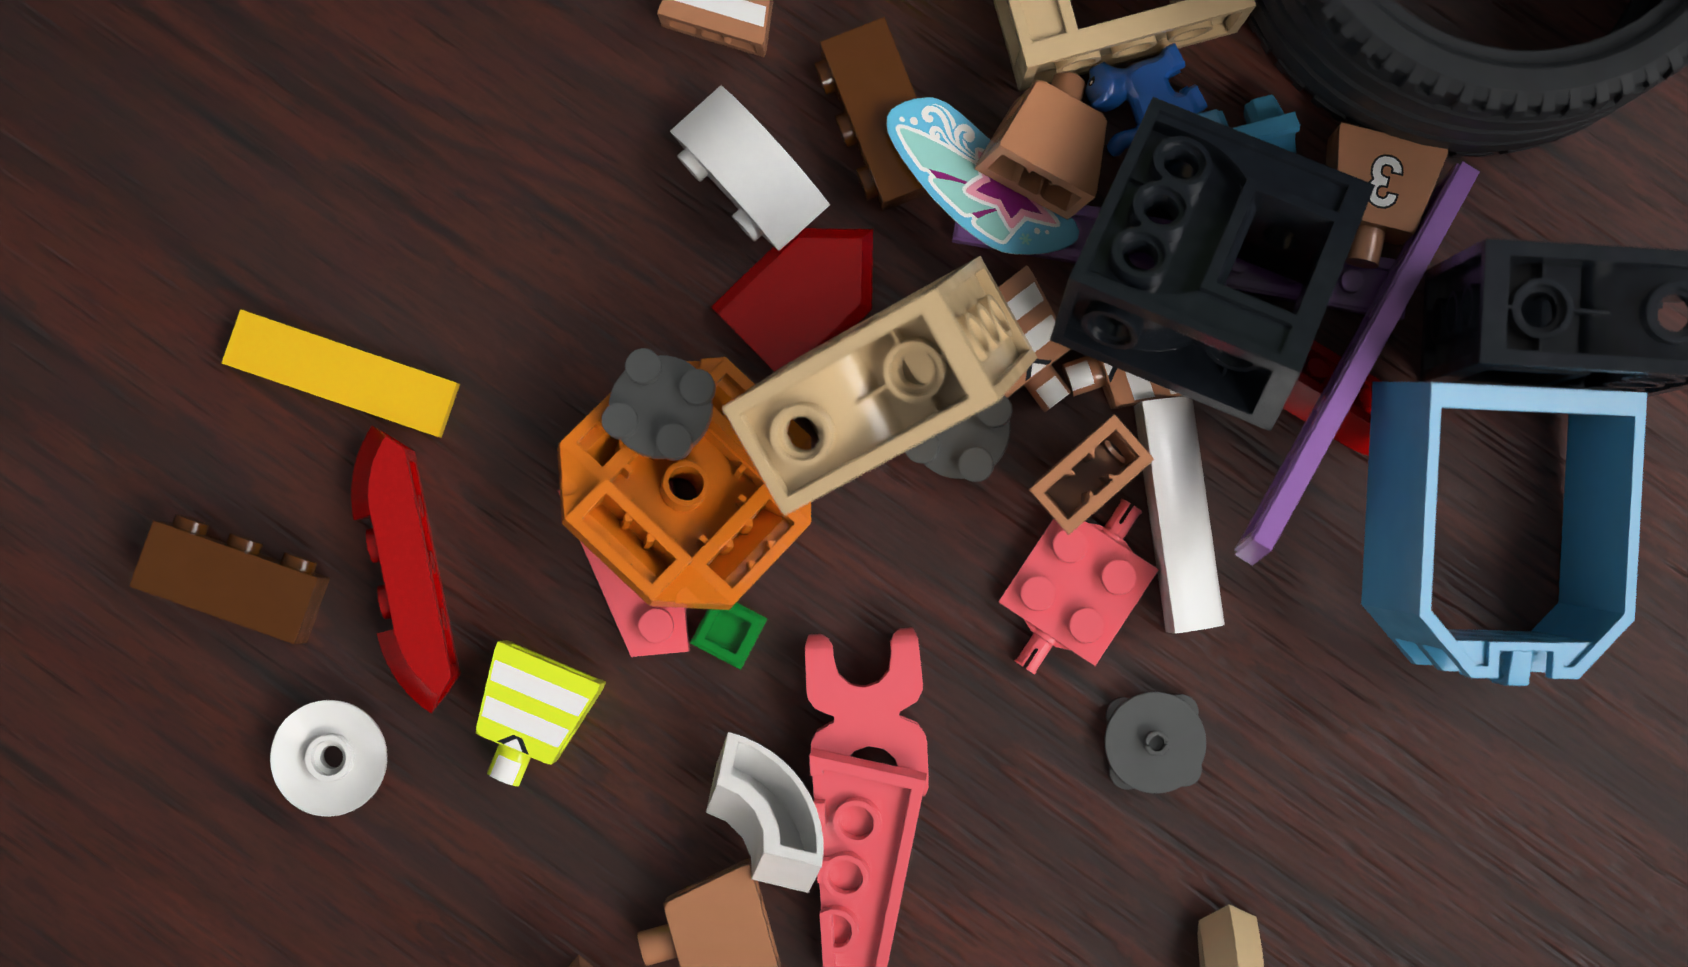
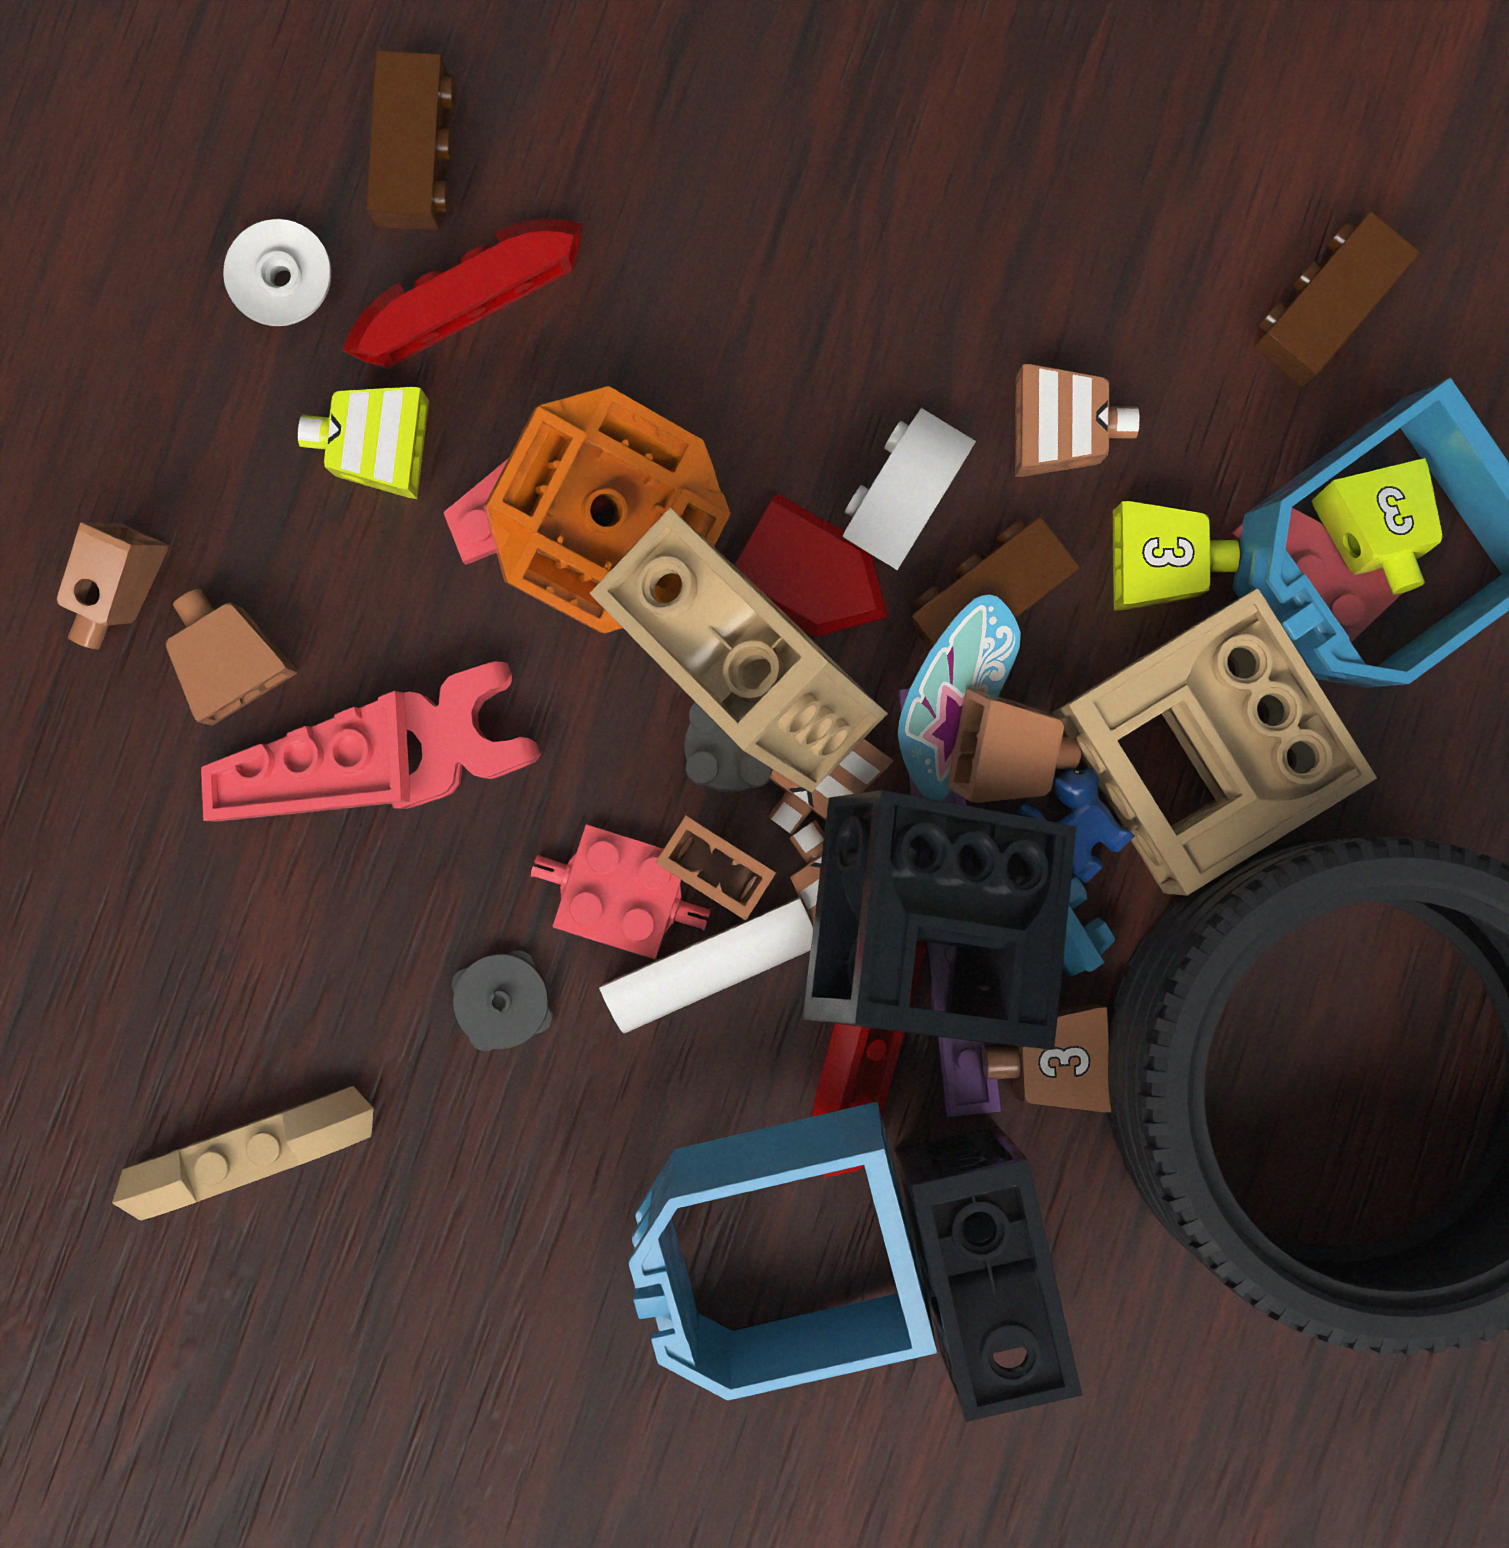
camera: 70 degrees right, 0 degrees up
(340, 373) = (621, 184): yellow tile -> none
(660, 405) = (667, 465): dark grey piece -> none
(729, 633) = (488, 595): green tile -> none
(769, 811) = (337, 672): white brick -> none
(1354, 366) = (887, 1080): medium lavender tile -> none

